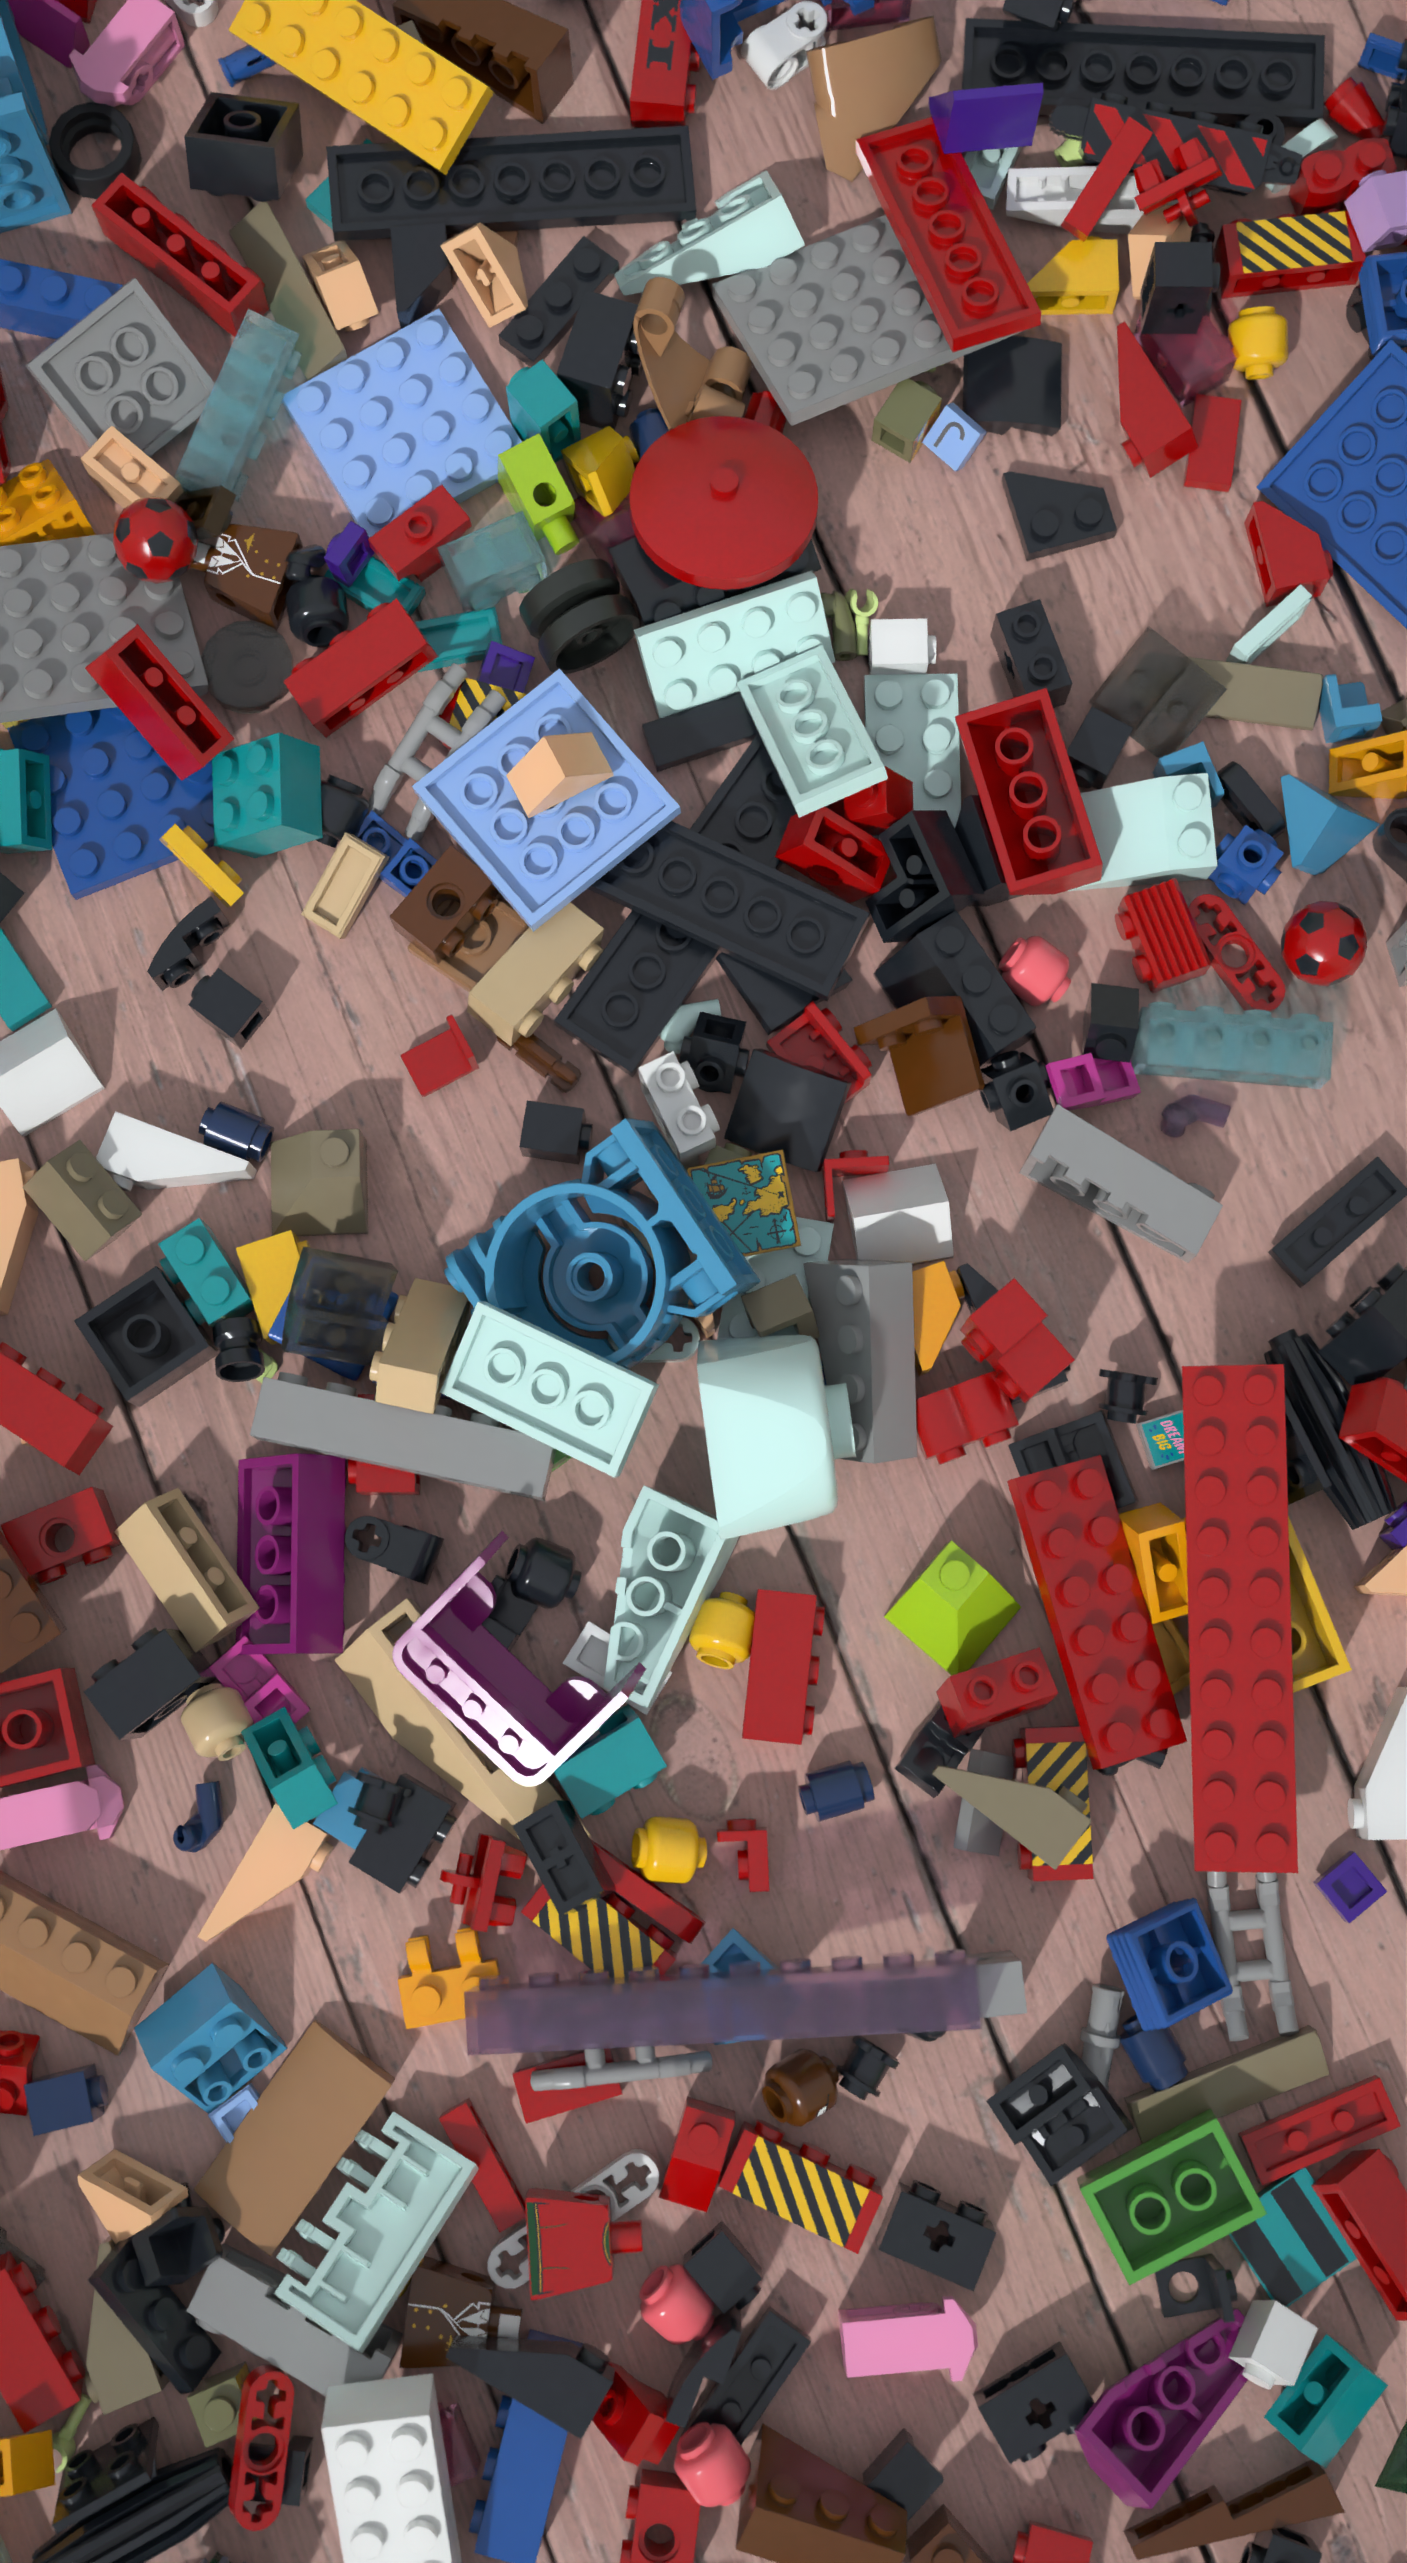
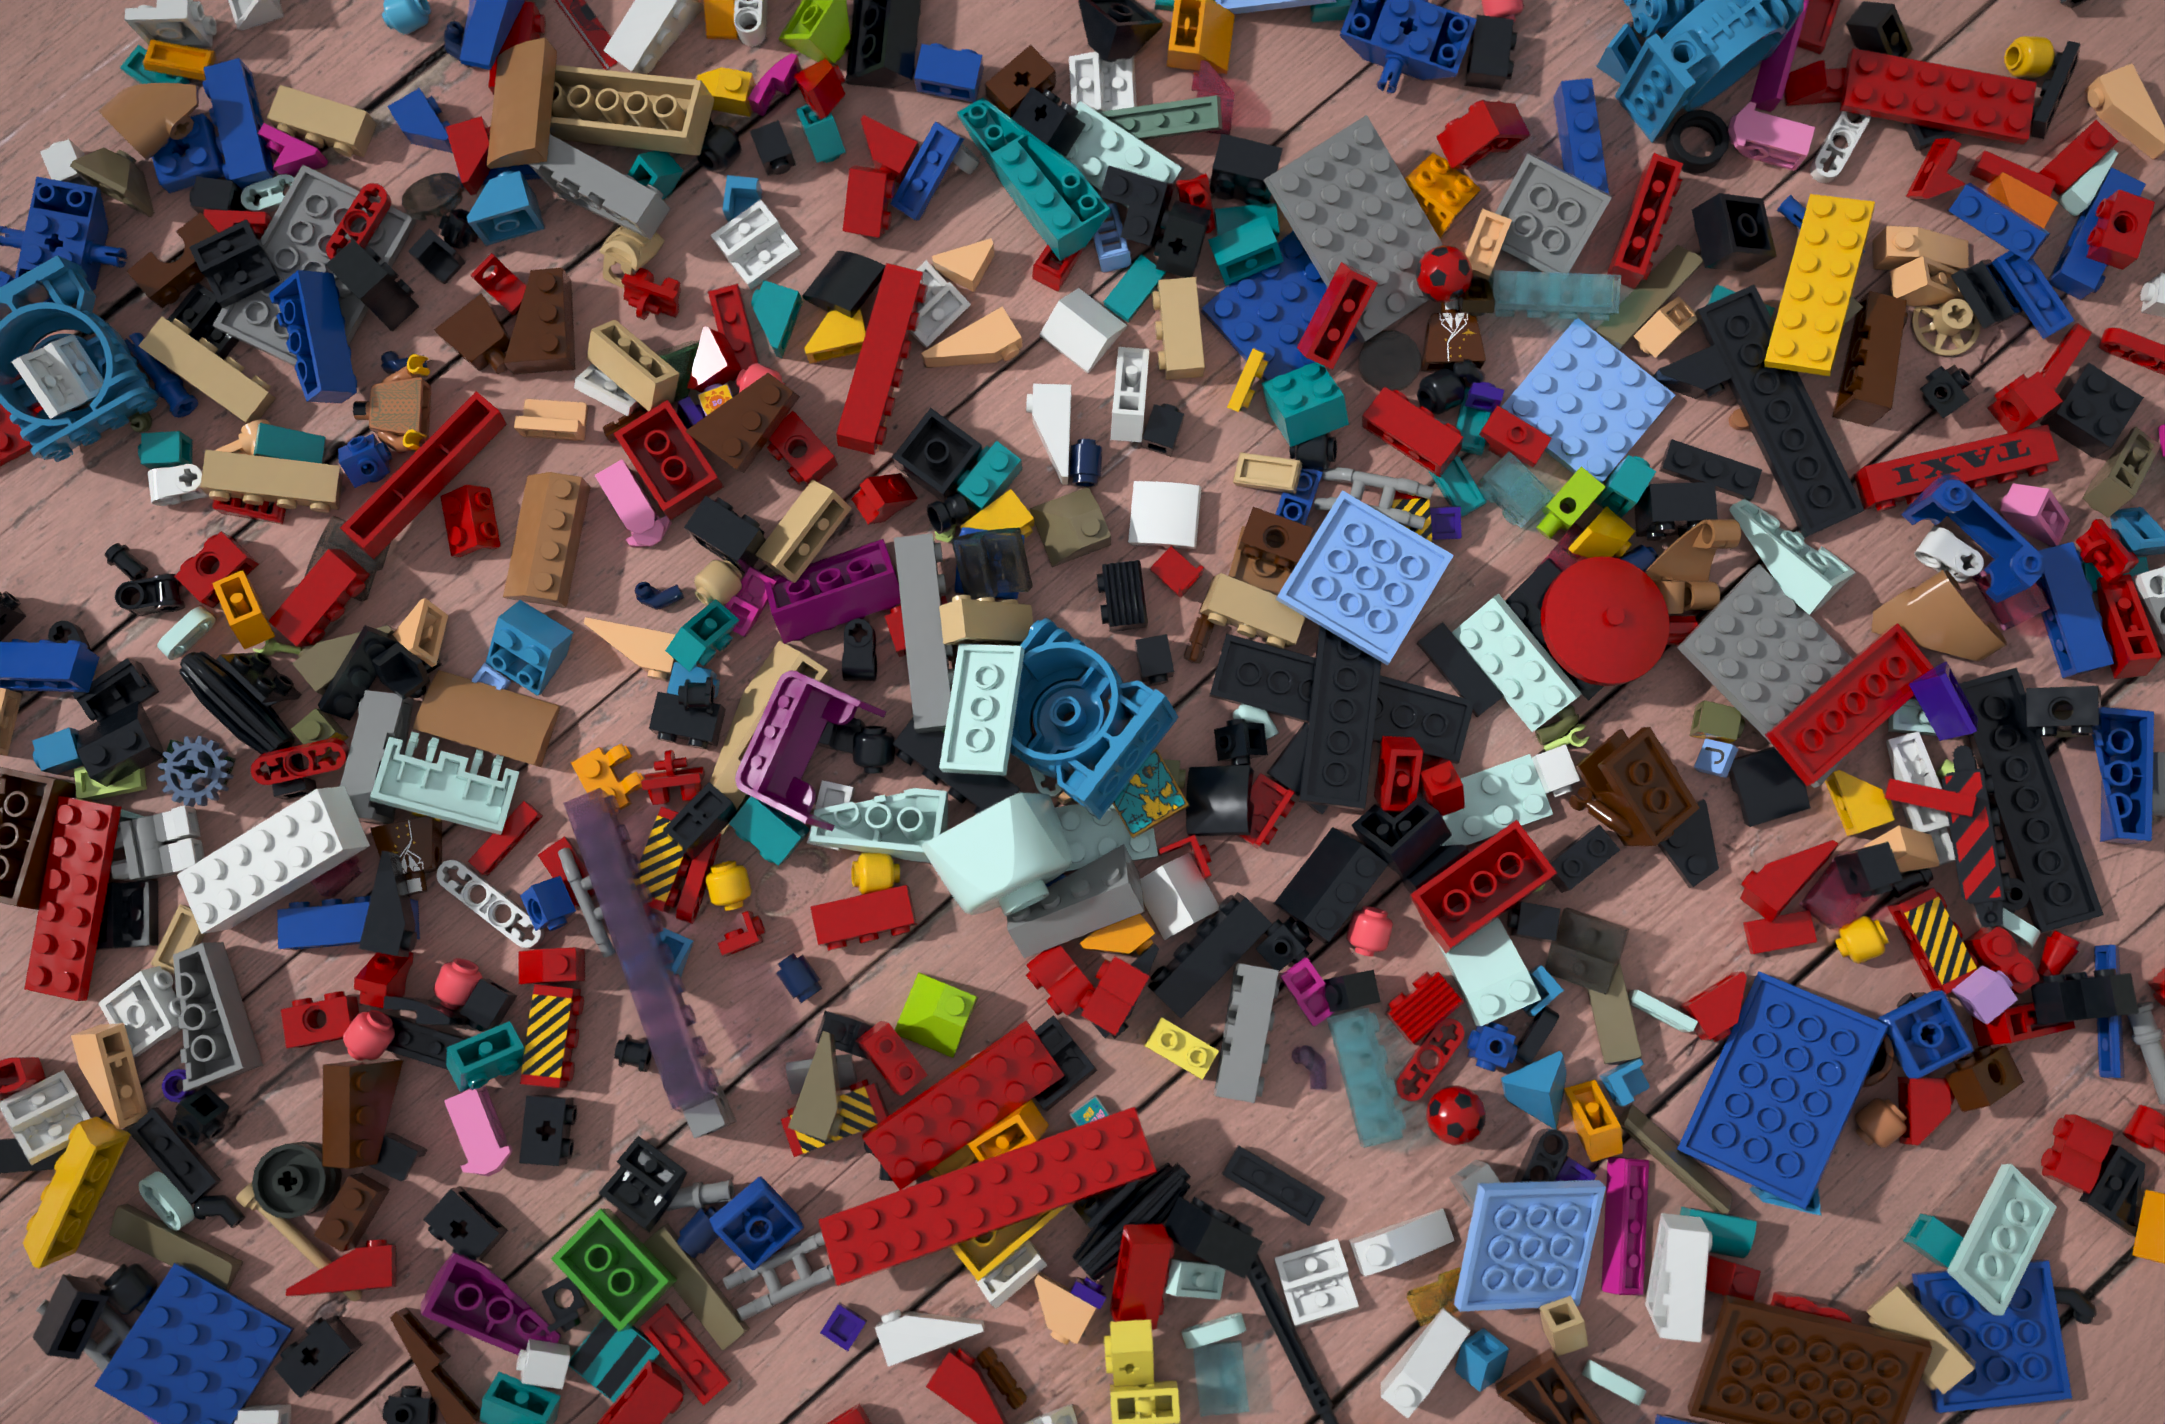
camera: 70 degrees right, 0 degrees up
(66, 2099) = (467, 575): dark blue brick -> none
(82, 1200) = (1008, 385): dark tan brick -> none
(87, 933) = (1179, 328): none -> tan brick
(160, 1036) = (1129, 394): none -> white slope
(174, 960) = (1184, 386): black slope -> none
(179, 1437) = (883, 497): none -> red brick
(351, 1048) = (1164, 514): none -> white slope
(448, 1145) = (1123, 595): none -> black brick
(489, 272) = (1710, 418): light nougat slope -> none
(558, 770) = (1383, 578): light nougat slope -> none
(574, 2240) = (475, 906): red torso -> none
(579, 616) = (1496, 556): pearl dark grey wheel -> none
(580, 1490) = (926, 751): none -> black brick
(606, 2128) = (548, 904): none -> blue brick
(671, 1098) = (1185, 736): white plate -> none
(780, 1307) = (1087, 838): dark tan panel -> none
(800, 2087) = (609, 1015): reddish brown head -> none
(802, 2294) = (485, 1057): none -> teal brick
(812, 731) = (1471, 730): light aqua plate -> none
(928, 1051) = (1289, 879): reddish brown bracket -> none
(964, 549) = (1634, 789): none -> reddish brown torso
(996, 1196) = (1209, 954): none -> black brick
(1113, 1281) = (1181, 1048): none -> light yellow brick
(1125, 1395) = (1110, 1080): black brick -> none
(1157, 191) = (1936, 833): red hips -> none
(1354, 1622) = (1011, 1274): none -> white plate

